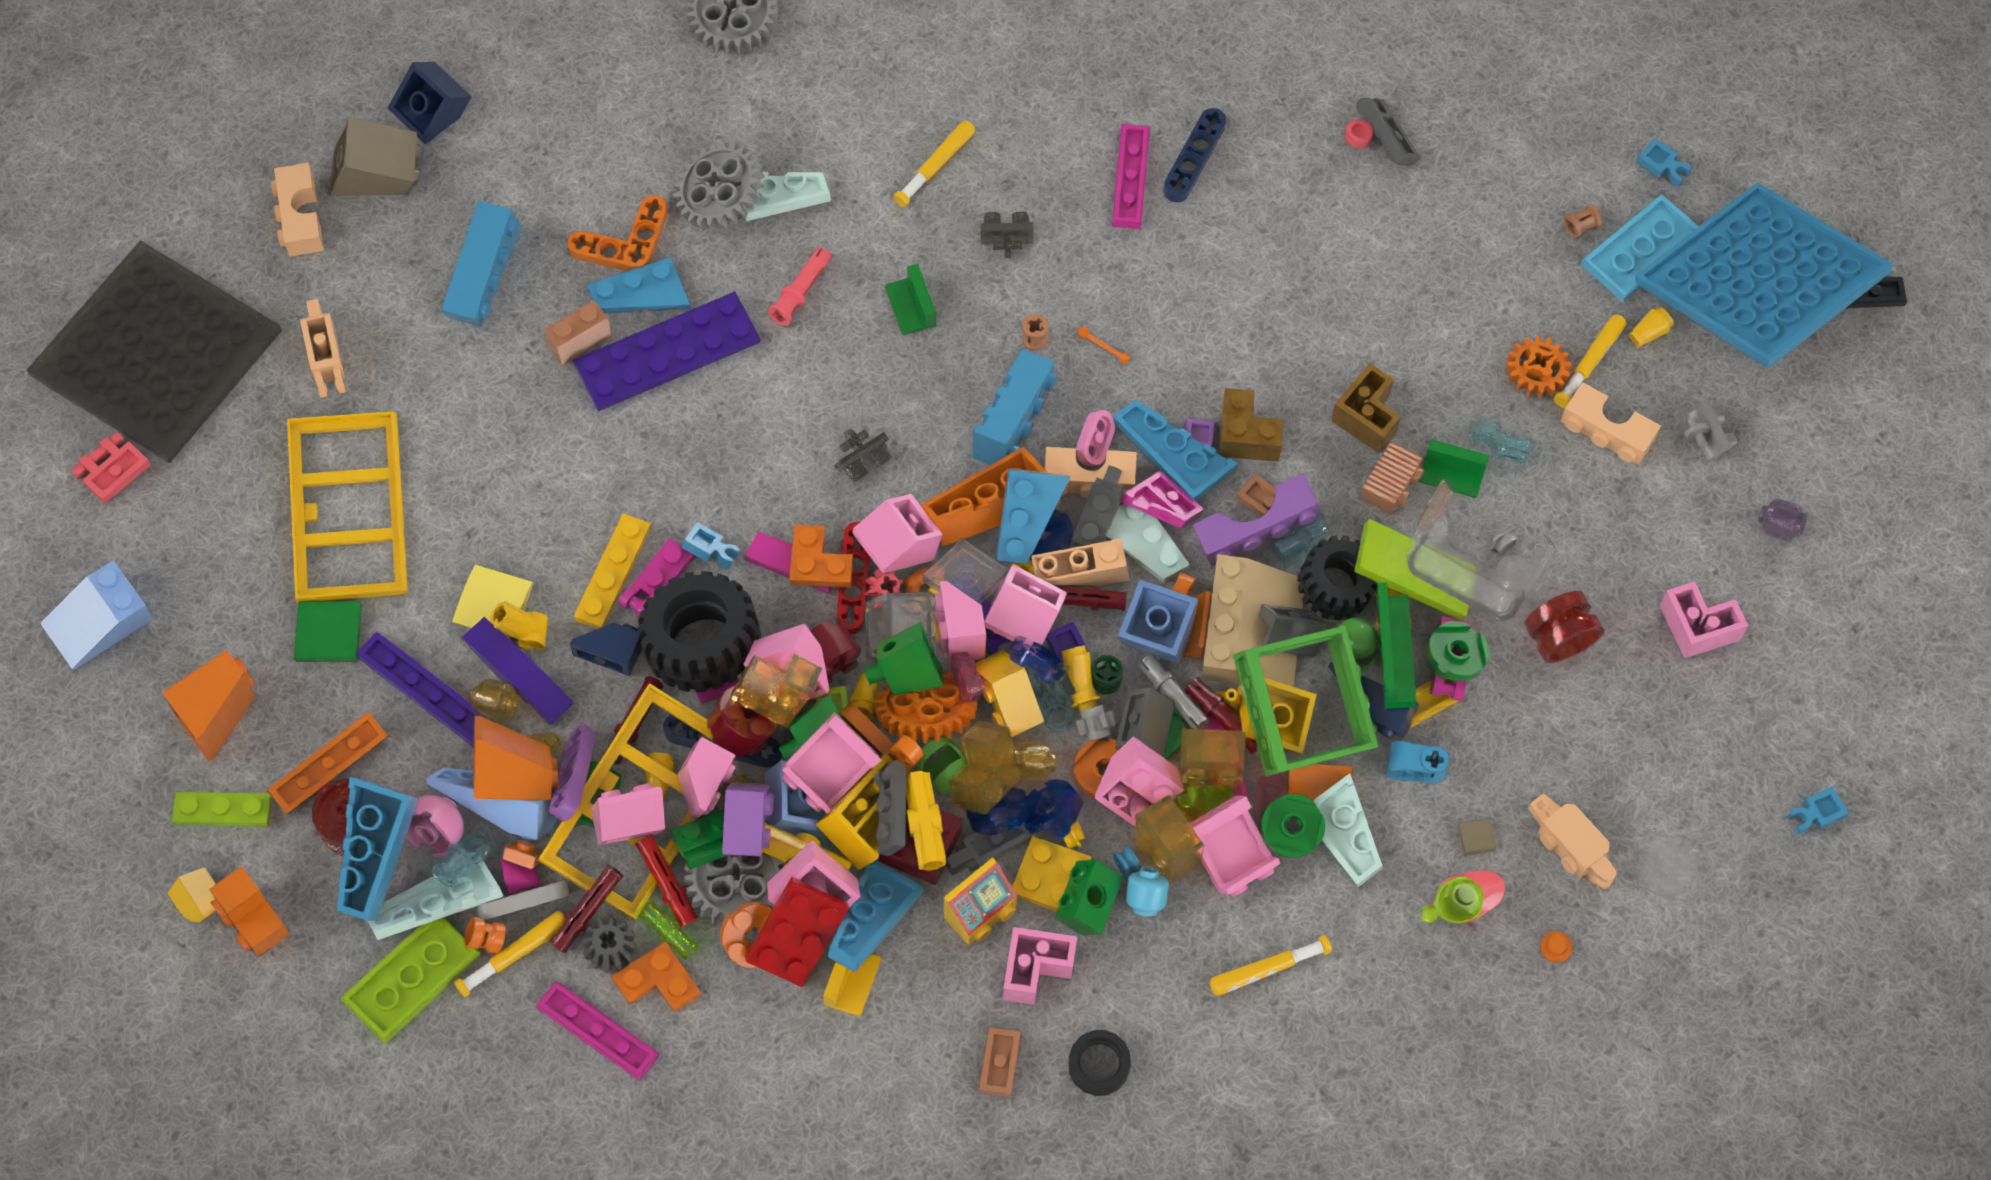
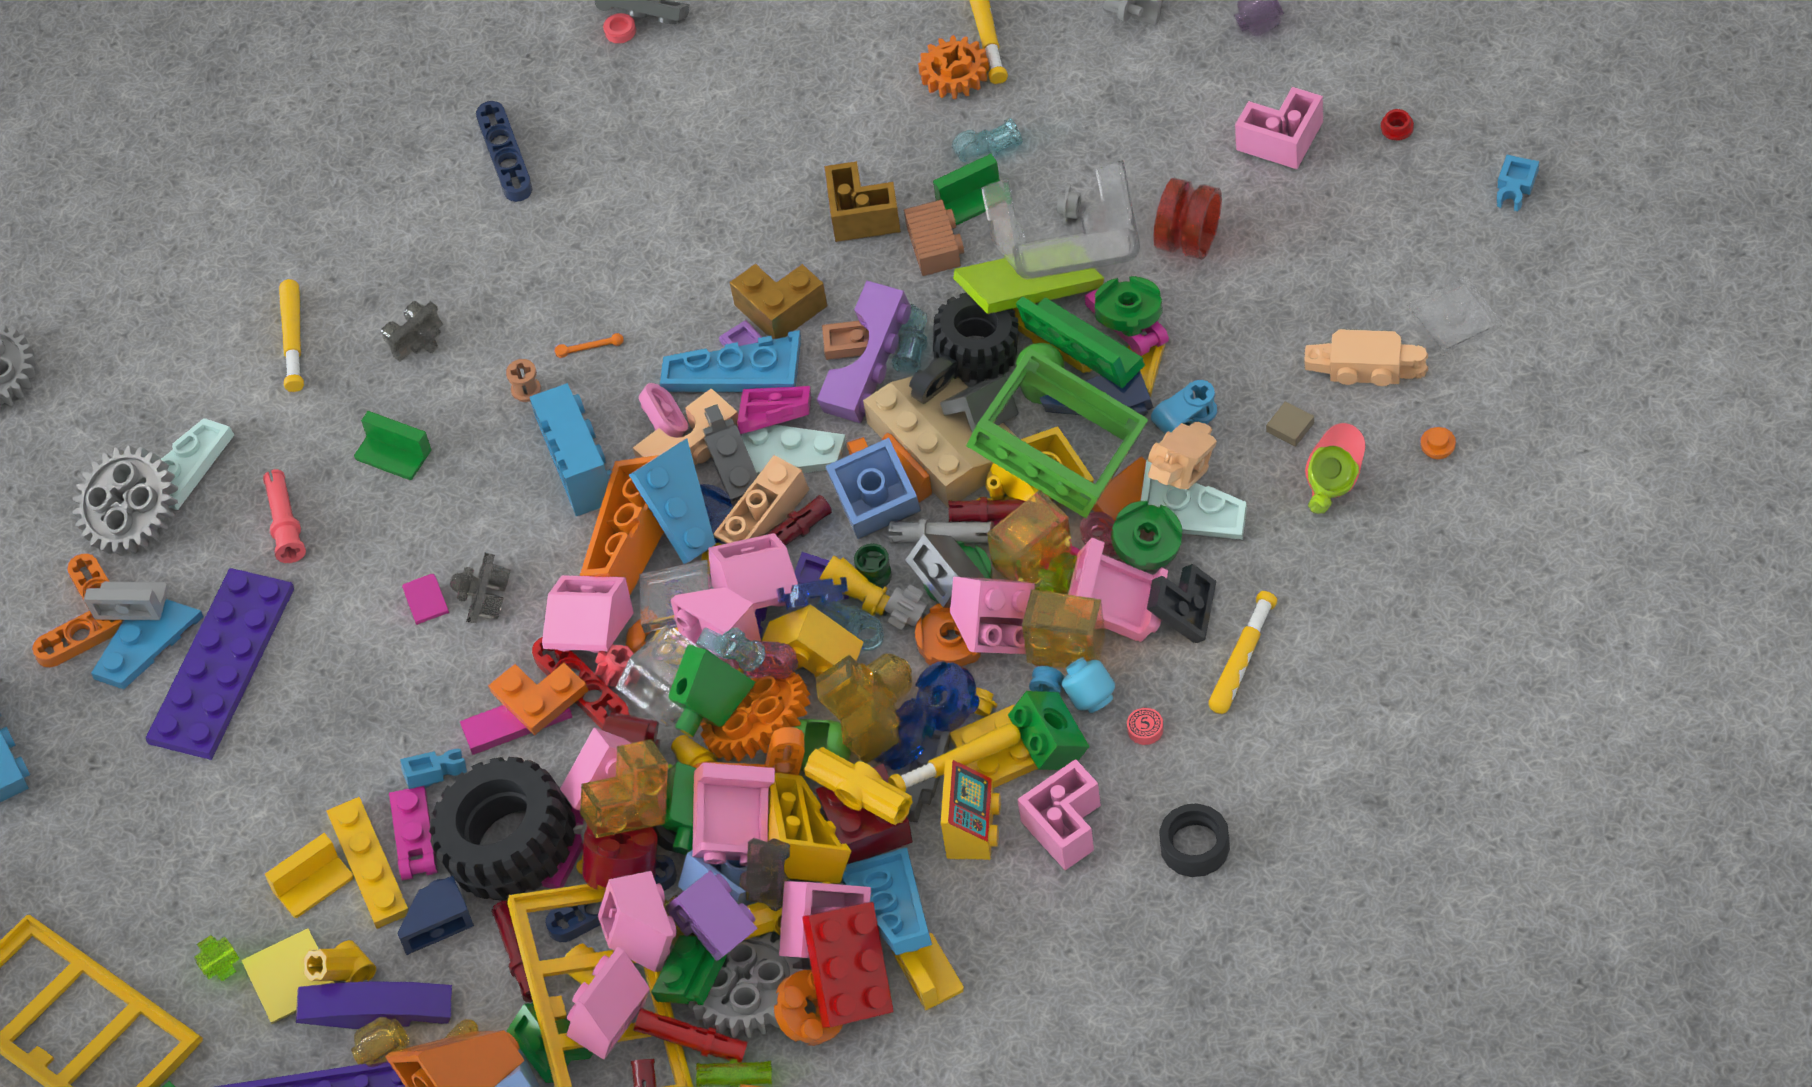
camera: 35 degrees left, 10 degrees down
(462, 548) = (216, 958): none -> clear neon green gear
(569, 547) = (308, 876): none -> yellow panel
(573, 772) = (503, 1012): medium lavender beam -> none
(577, 332) = (127, 712): nougat brick -> none
(652, 256) = (127, 600): none -> light grey panel
(806, 823) = (765, 872): none -> clear smoke hips
(824, 426) = (425, 598): none -> dark pink slope
(891, 807) = (821, 800): dark grey plate -> none
(941, 650) = (733, 646): none -> clear light blue connector
(999, 1062) = (1116, 913): nougat plate -> none
(1017, 863) = (968, 753): none -> yellow piece
(1130, 176) = (468, 209): dark pink tile -> none
(1156, 953) = (1145, 726): none -> coral tile
(1266, 902) = (1186, 606): none -> black plate
(1276, 583) = (933, 379): none -> black plate
(1371, 794) = (1182, 455): none -> light nougat hinge
(1628, 440) = (1032, 68): light nougat arch -> none
(1788, 684) = (1400, 118): none -> red plate

